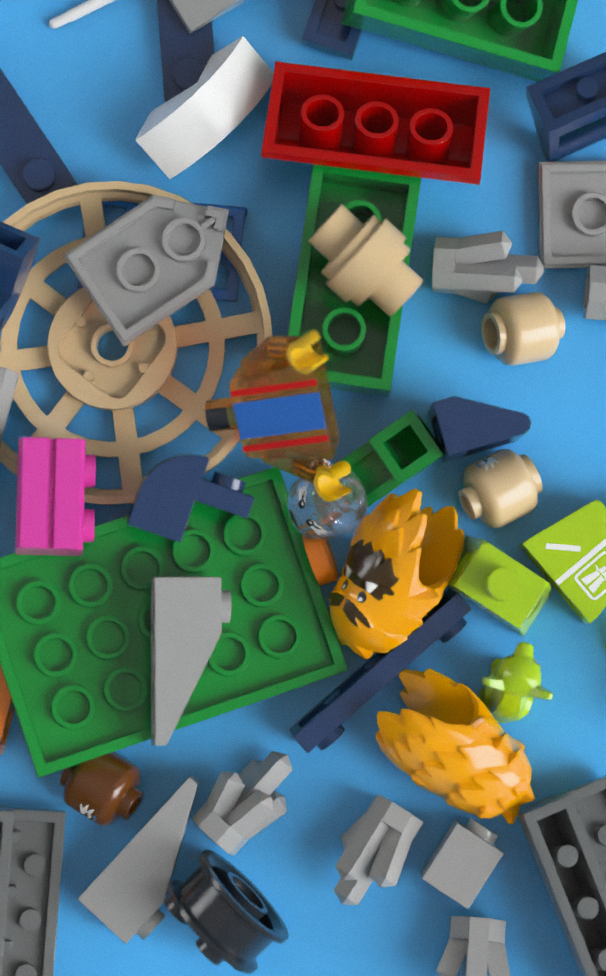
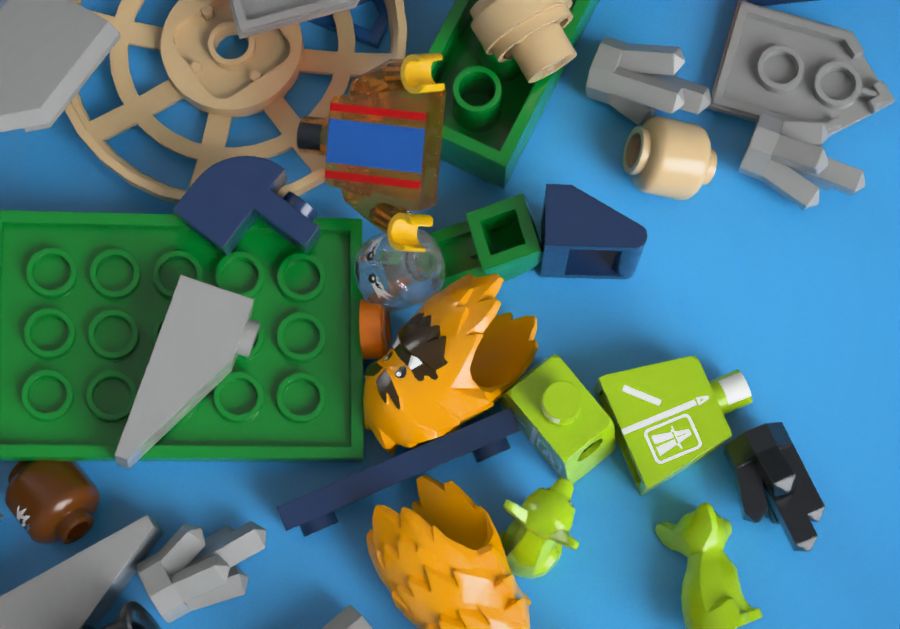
camera: 15 degrees right, 10 degrees down
(52, 496) = (104, 160): dark pink brick -> none
(500, 488) = (593, 316): tan head -> none

